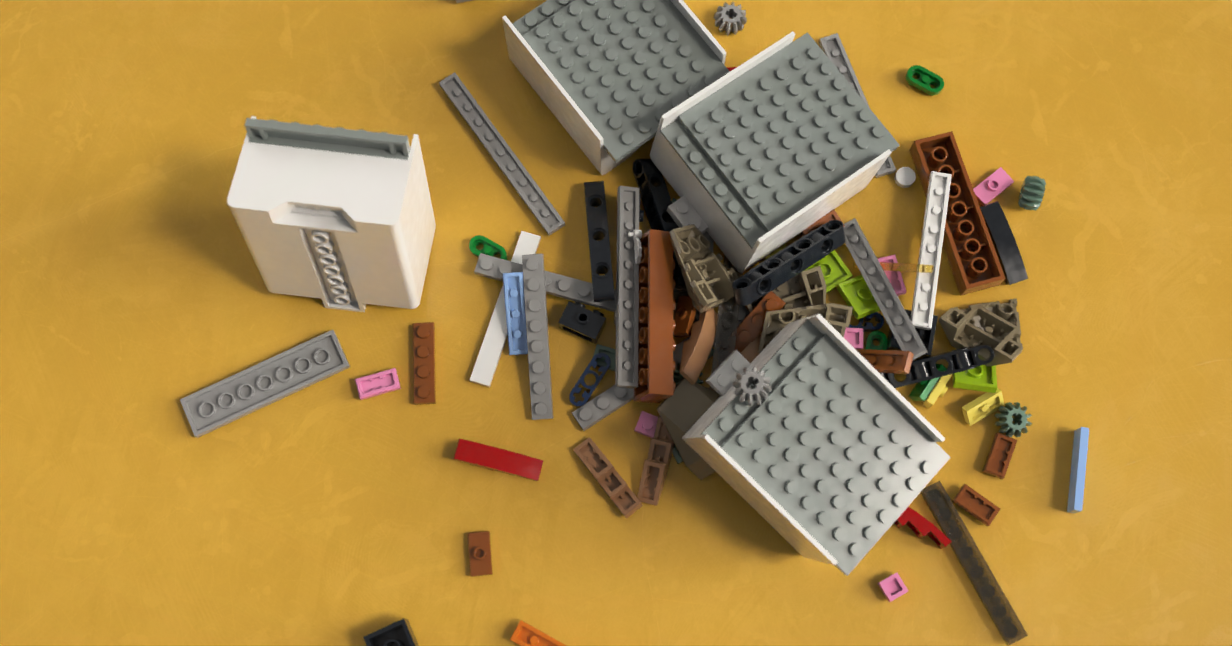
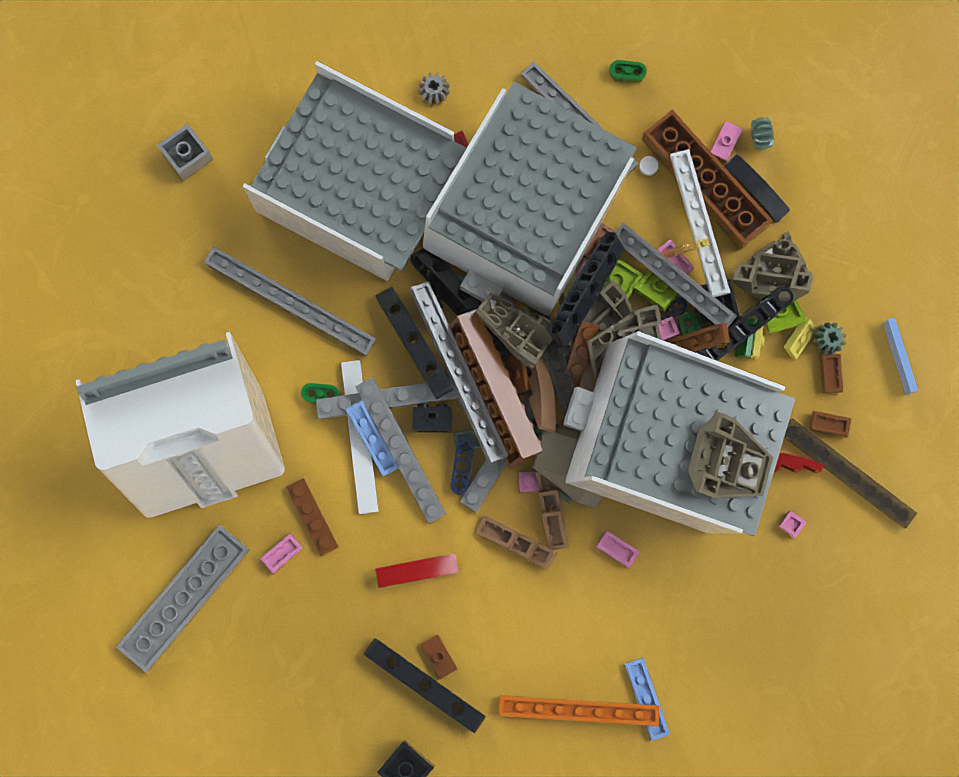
camera: 25 degrees left, 5 degrees up
(460, 588) = (437, 693): none -> black beam
(637, 235) = (446, 325): white piece -> none
(705, 530) = (617, 549): none -> bright pink plate
(745, 392) = (602, 419): light grey gear -> none
(854, 484) = (728, 460): none -> dark tan wedge

